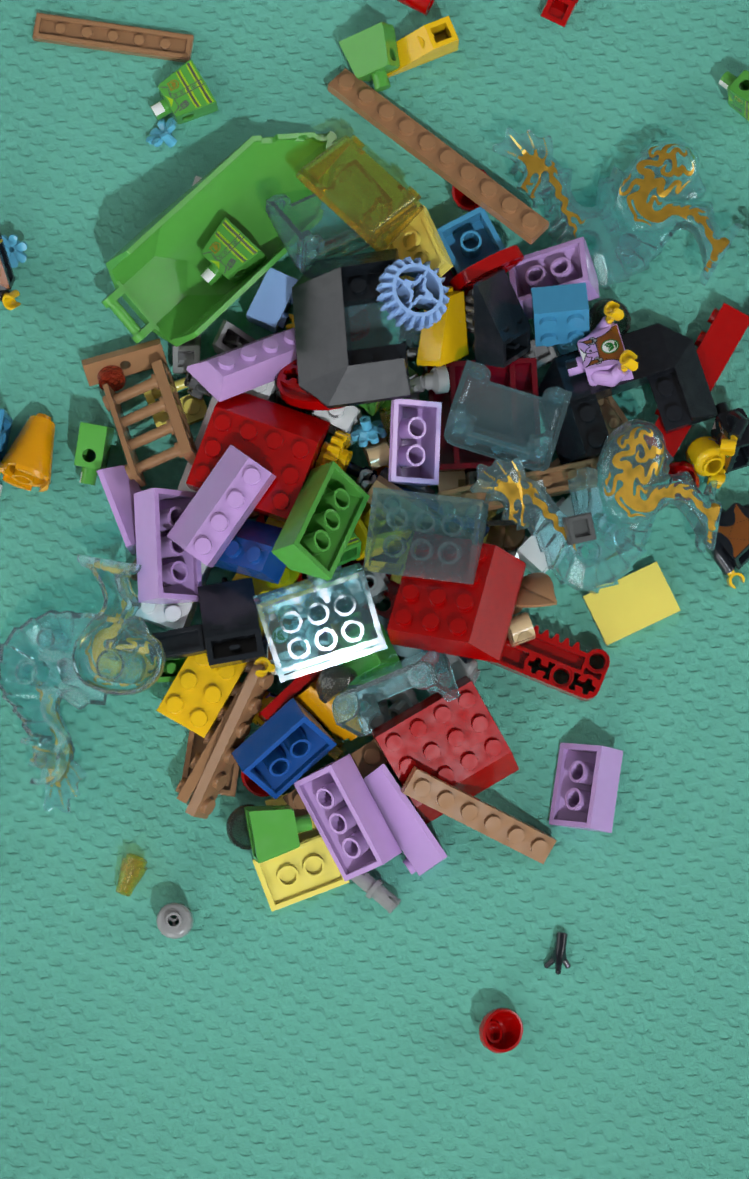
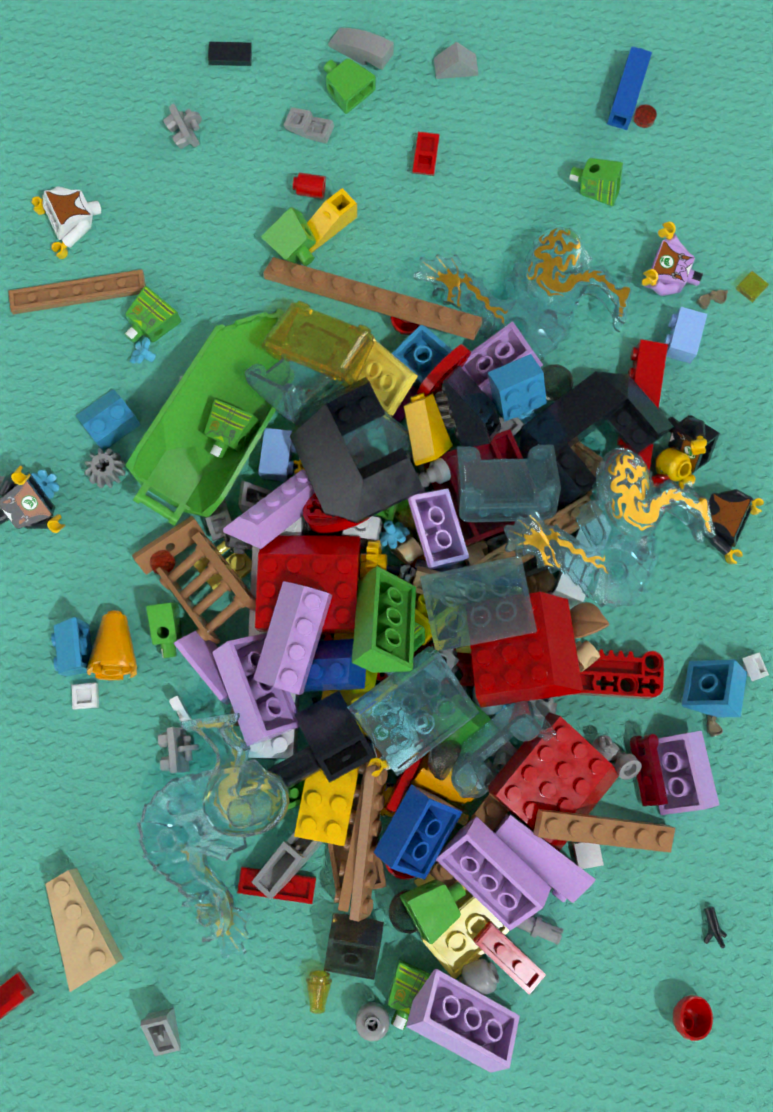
camera: 25 degrees left, 5 degrees down
(66, 585) = (179, 750): none -> light grey hips
(74, 249) = (113, 470): none -> light grey gear
(81, 541) = (179, 706): none -> white tile
(101, 199) = (108, 420): none -> dark azure slope
(123, 756) = (298, 889): none -> red tile
(139, 736) = (284, 864): none -> light grey slope
(180, 843) = (353, 946): none -> clear smoke slope
(224, 908) = (404, 988): none -> bright green torso
(266, 950) = (464, 1022): none -> lavender slope
(297, 917) = (480, 976): none -> light grey head
(335, 908) = (509, 957): none -> tile
(398, 293) = (398, 401): light blue gear -> none
(455, 836) = (587, 855): none -> white tile
(528, 759) = (626, 765): none -> light grey arm
(551, 771) = (650, 776): none -> dark red plate
(579, 528) = (604, 554): dark grey tile -> none
(604, 353) = (566, 406): torso -> none
(632, 604) = (659, 607): light yellow tile -> none
(640, 754) = (712, 727): none -> dark tan piece
(655, 711) = (715, 687): none -> dark azure slope
(709, 704) = (755, 667): none -> white plate

